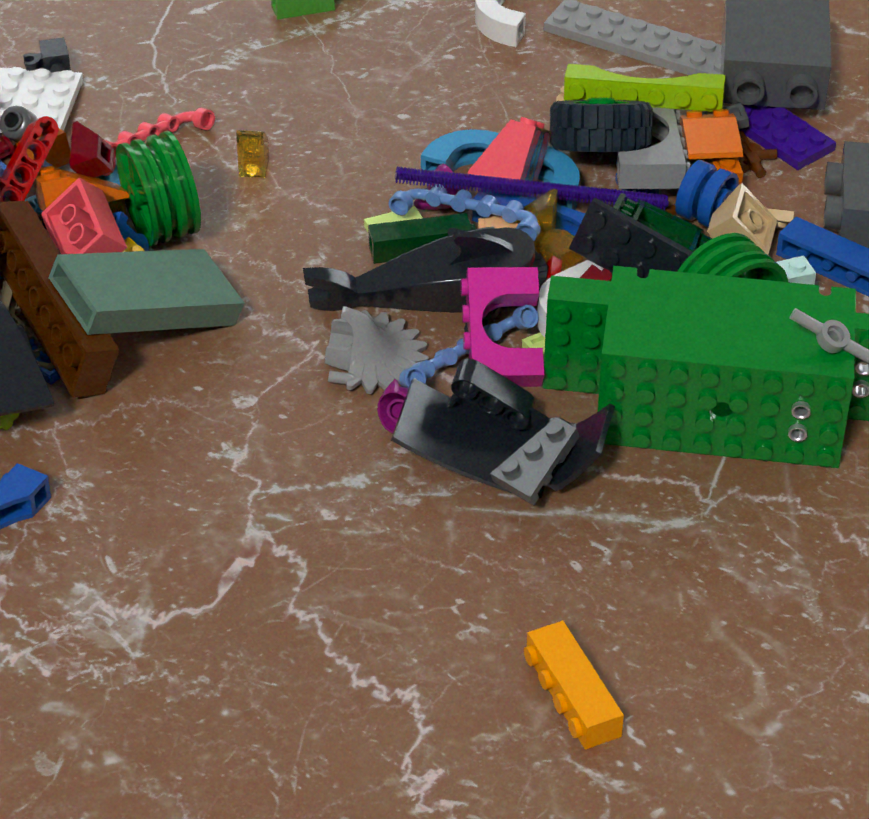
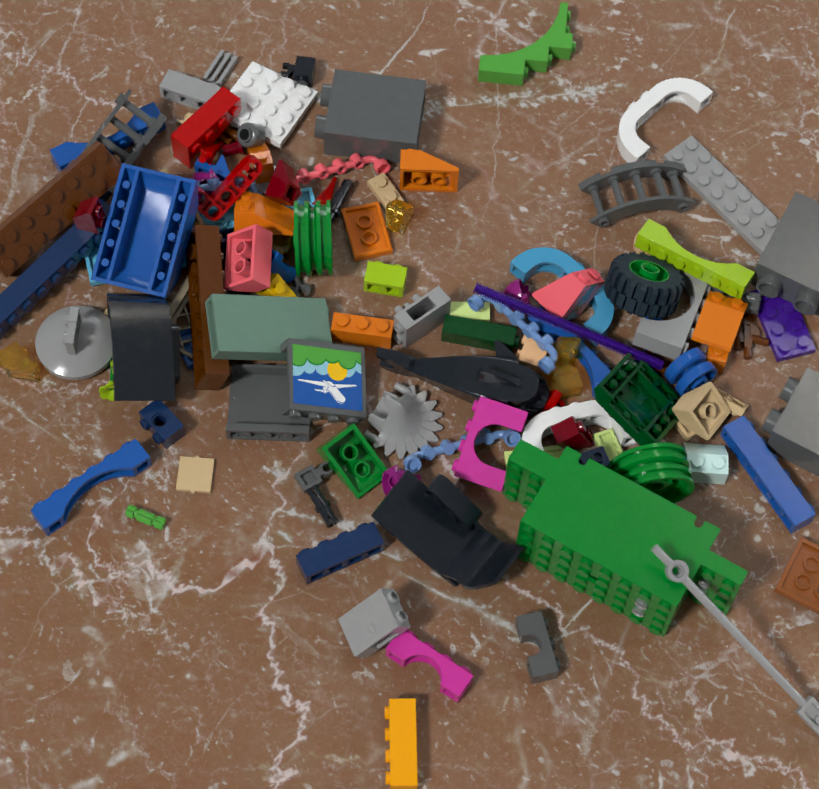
camera: 20 degrees right, 20 degrees up
(45, 443) = (156, 413): none -> dark blue brick
(72, 552) = (145, 517): none -> bright green axle
(118, 488) = (195, 474): none -> tan piece
(166, 69) = (370, 115): none -> dark grey brick
(182, 381) = (257, 405): none -> dark grey panel
(217, 142) = (383, 189): none -> tan plate
(222, 186) = (366, 231): none -> orange tile
(252, 325) = (325, 381): none -> panel
(267, 102) = (426, 173): none -> orange slope
(268, 273) = (362, 330): none -> orange brick
(269, 219) = (385, 278): none -> lime brick
(281, 441) = (312, 477): none -> dark grey plate
(315, 466) = (322, 506): none -> black pin
(328, 404) = (353, 460): none -> green slope
(339, 232) = (420, 317): none -> light grey piece
(366, 505) = (339, 552): none -> dark blue brick
(460, 552) = (374, 622): none -> light grey piece
(522, 577) = (408, 649): none -> dark pink arch
(531, 32) = (634, 171): none -> dark grey fence
(534, 461) = (457, 564): wing -> none
(618, 240) = (603, 415): black plate -> none
(704, 536) = (533, 629): none -> dark grey arch

